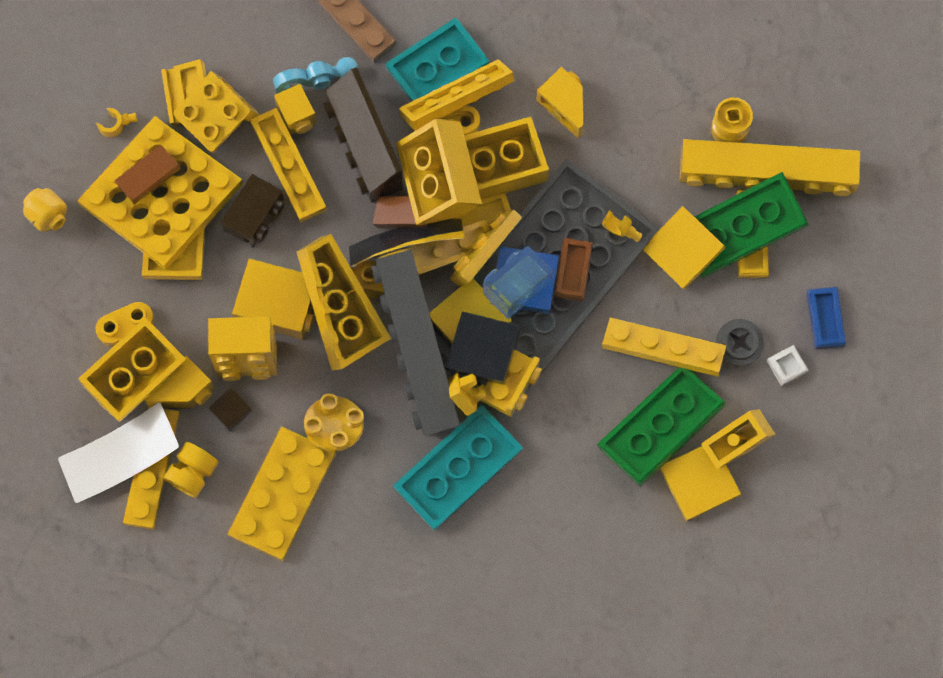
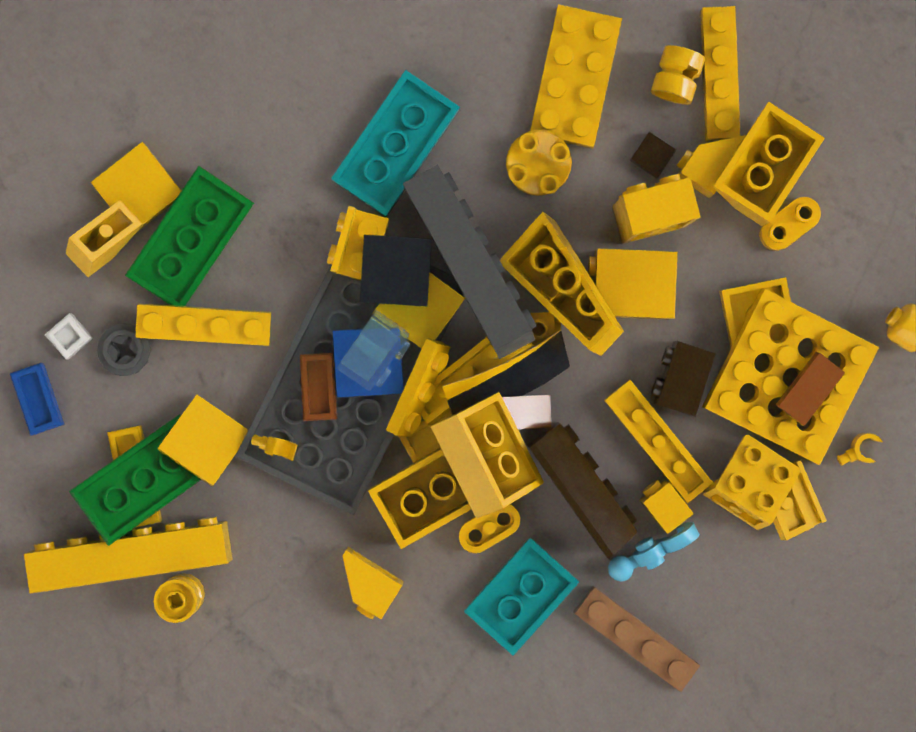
camera: 170 degrees right, 15 degrees up
(118, 454) = (759, 76): white sticker -> none
(456, 94) = (490, 561): yellow plate -> none
(463, 394) = (404, 218): yellow tile -> none

